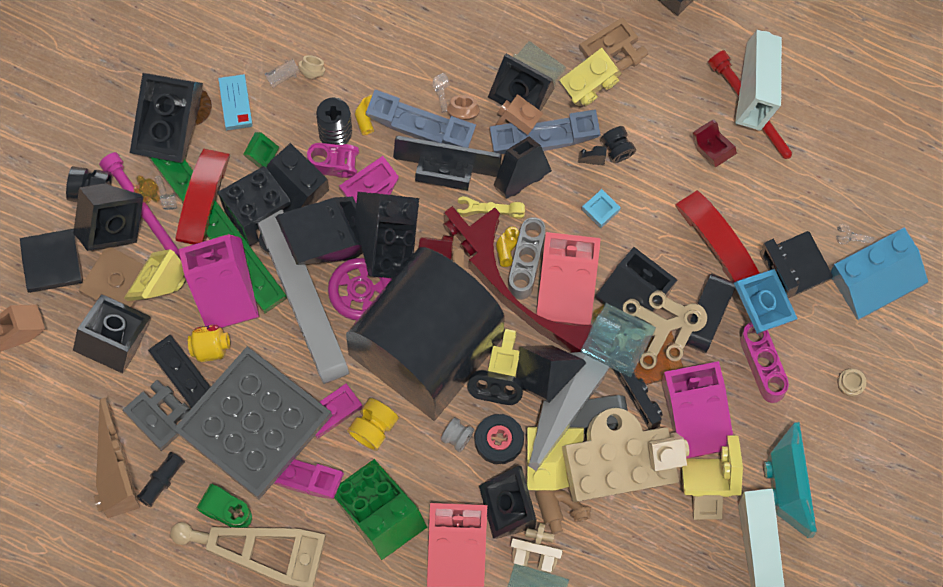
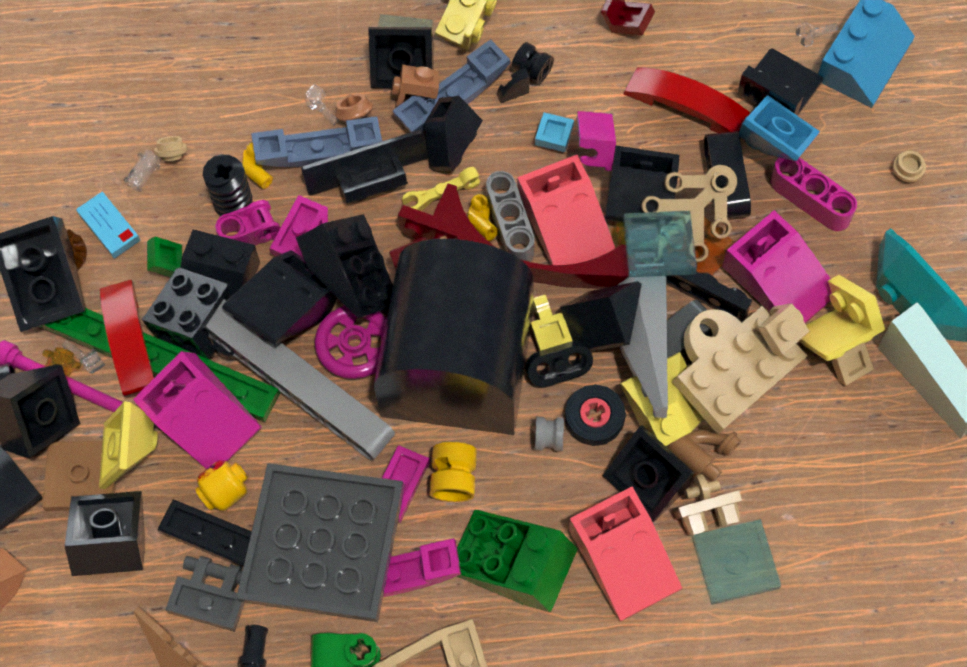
camera: 25 degrees left, 5 degrees down
(624, 231) = (597, 132): none -> dark pink hinge

